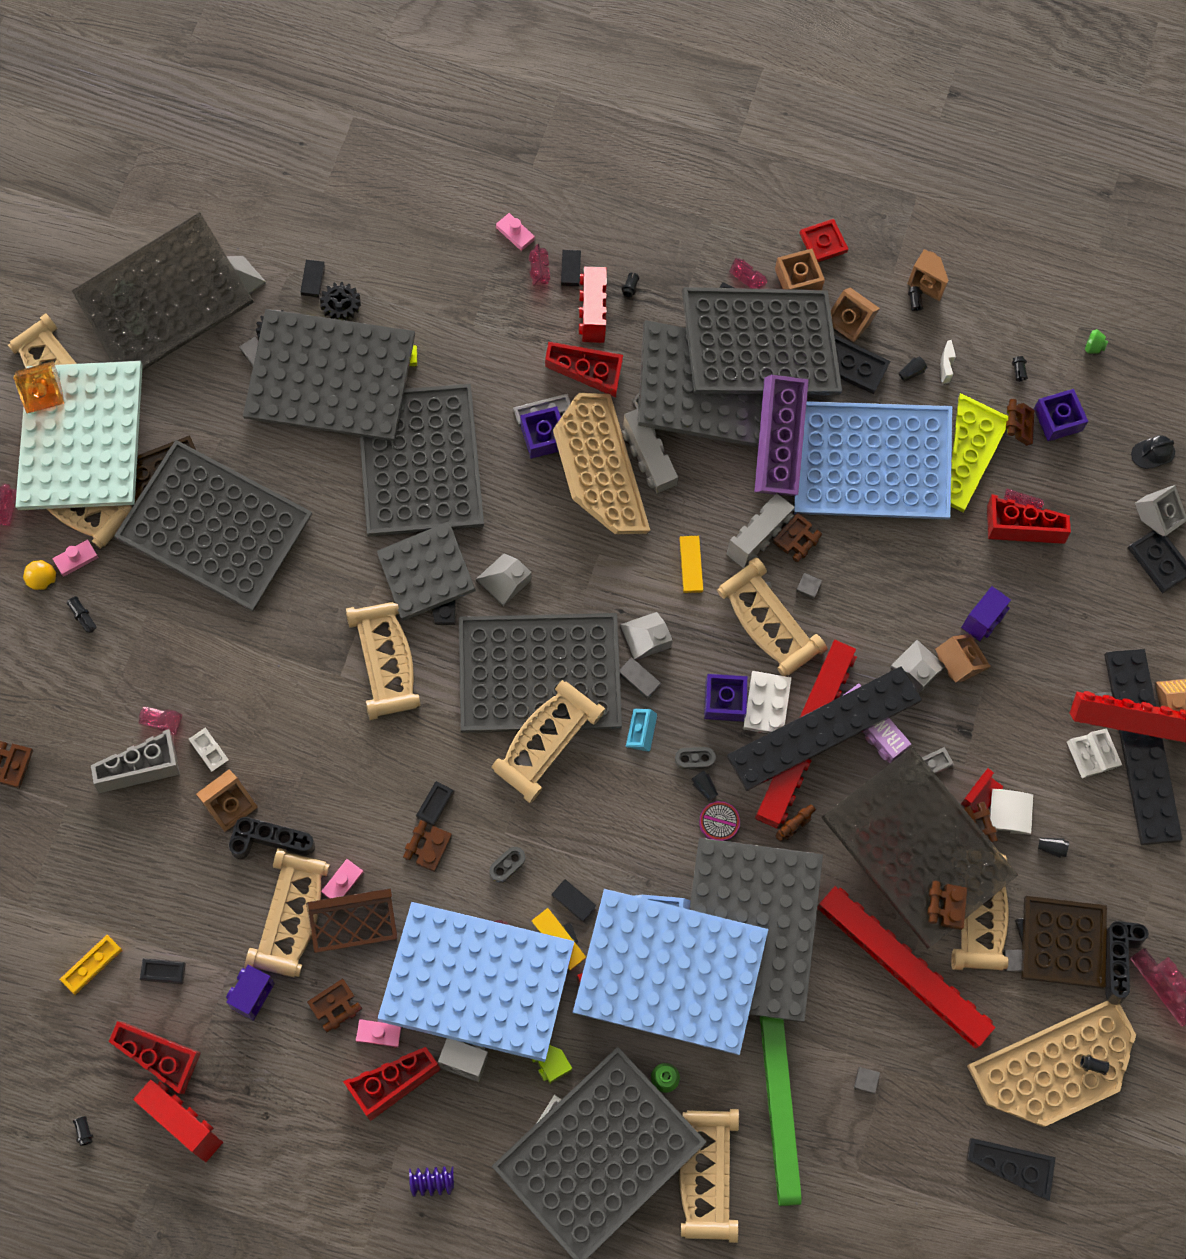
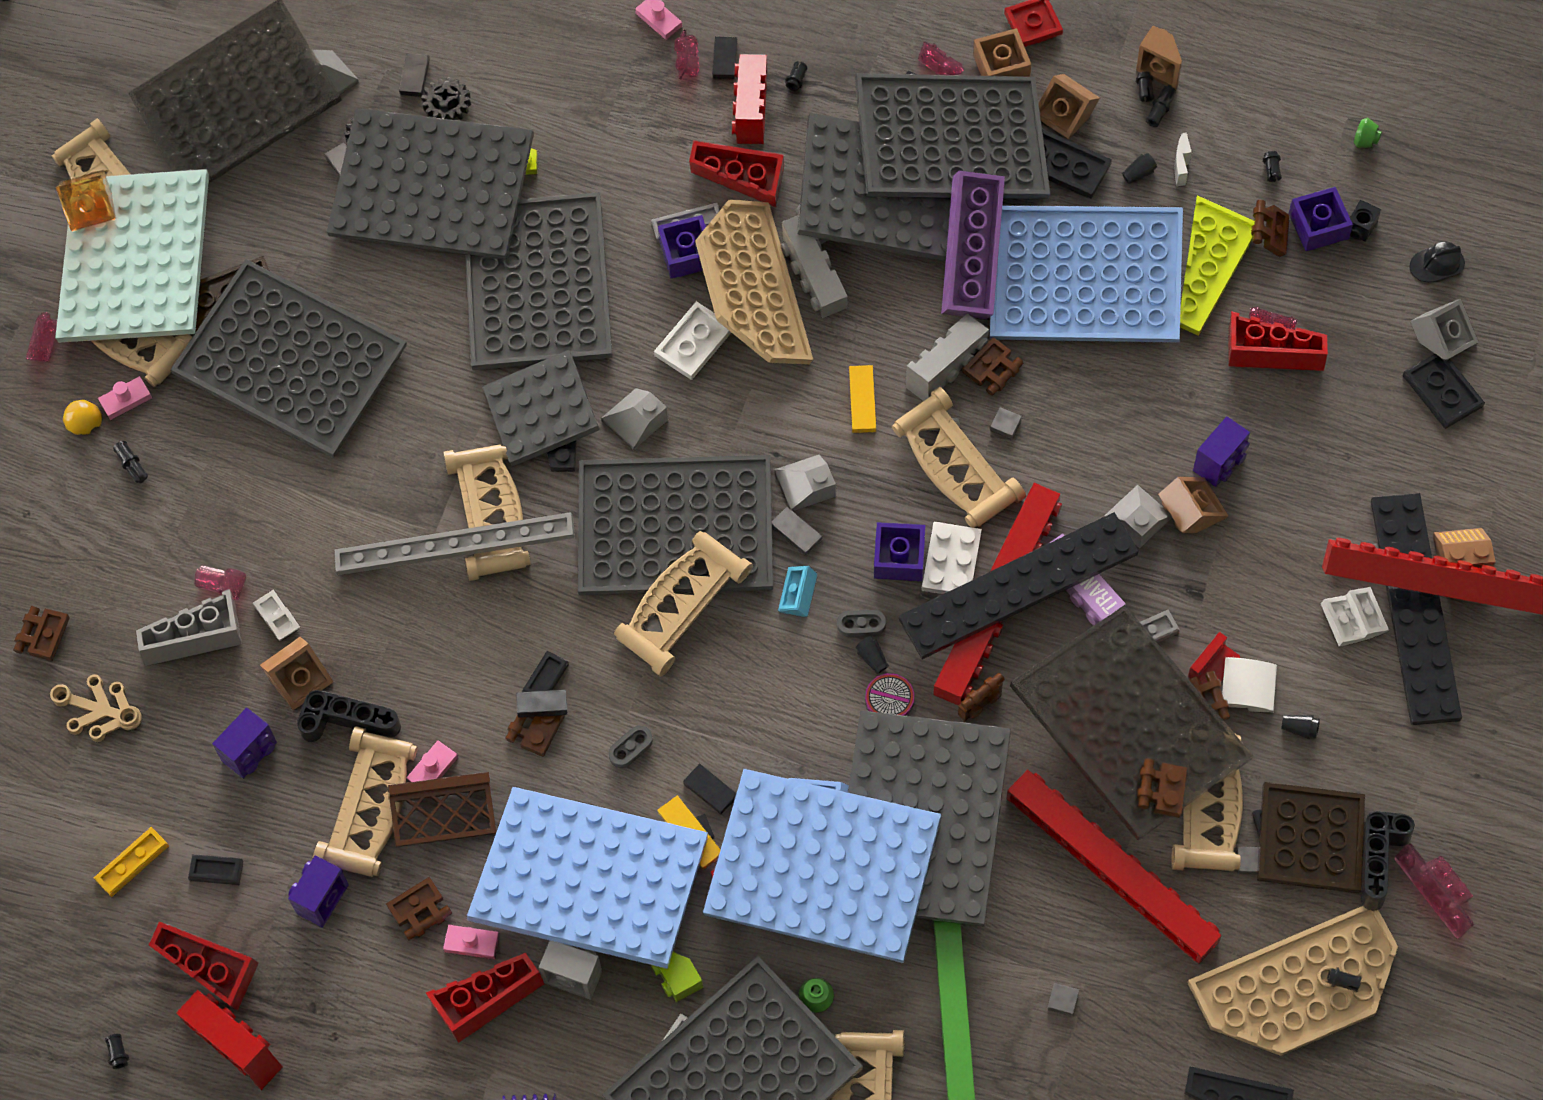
camera: 10 degrees right, 5 degrees down
(61, 831) = (98, 709): none -> tan plant
(185, 863) = (245, 743): none -> dark purple brick
(357, 689) = (454, 543): none -> light grey plate
(433, 828) = (541, 703): none -> tile
(550, 513) = (692, 341): none -> white plate
(928, 315) = (1160, 106): none -> black axle
(1098, 411) = (1366, 213): none -> black brick

